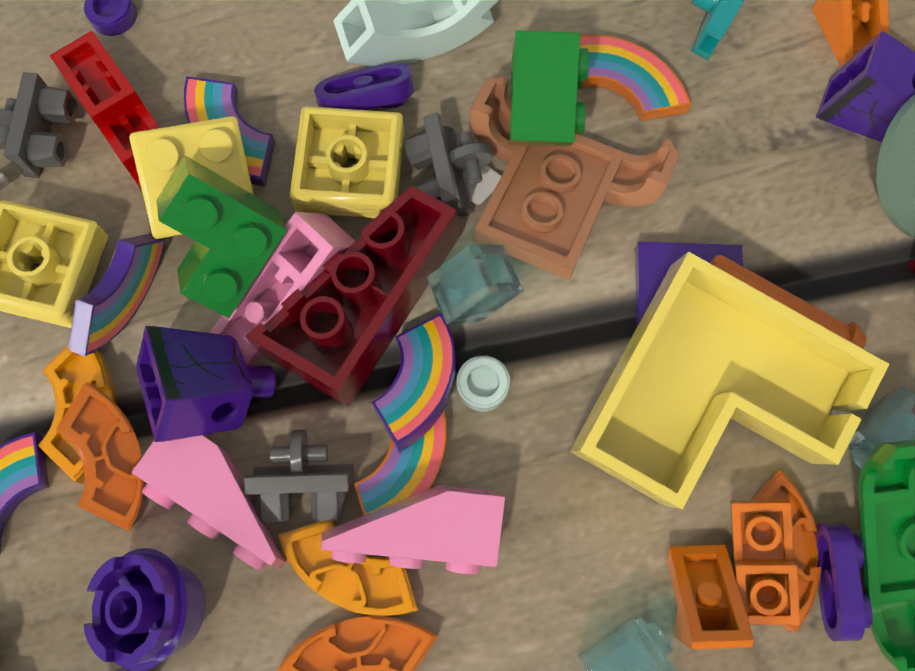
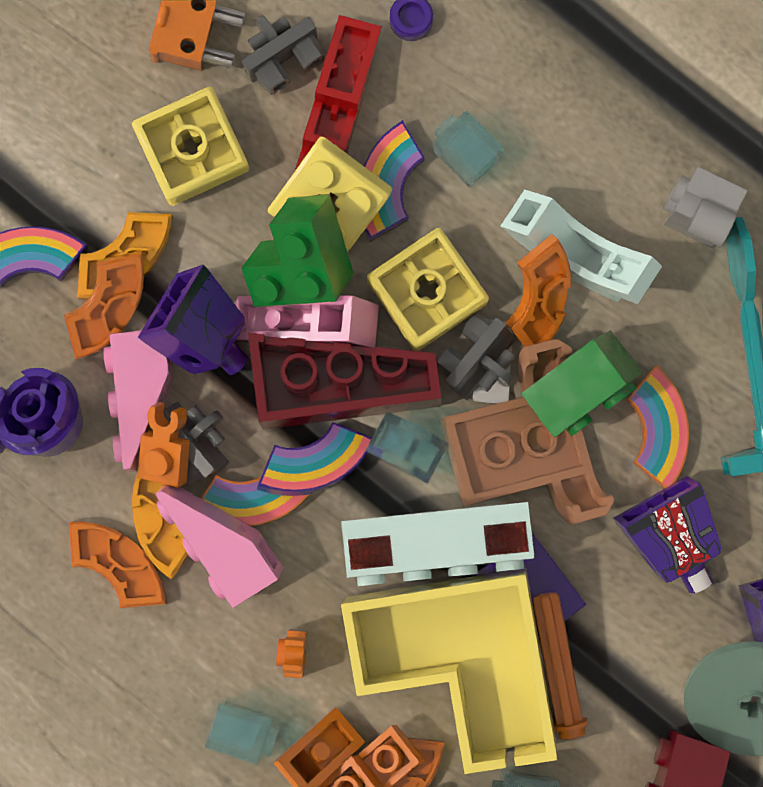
camera: 50 degrees right, 10 degrees up
(117, 296) = (213, 217): tile -> none
(256, 42) = (466, 147): none -> clear light blue brick
(287, 513) = (162, 452): none -> orange plate
(367, 88) = (489, 252): dark purple plate -> none
(424, 54) = (544, 295): none -> orange tile
(483, 383) = (349, 502): light aqua tile -> none
(588, 544) = (292, 653): none -> orange plate
(590, 311) = (437, 540): none -> light aqua piece
(735, 121) = (674, 533): none -> torso

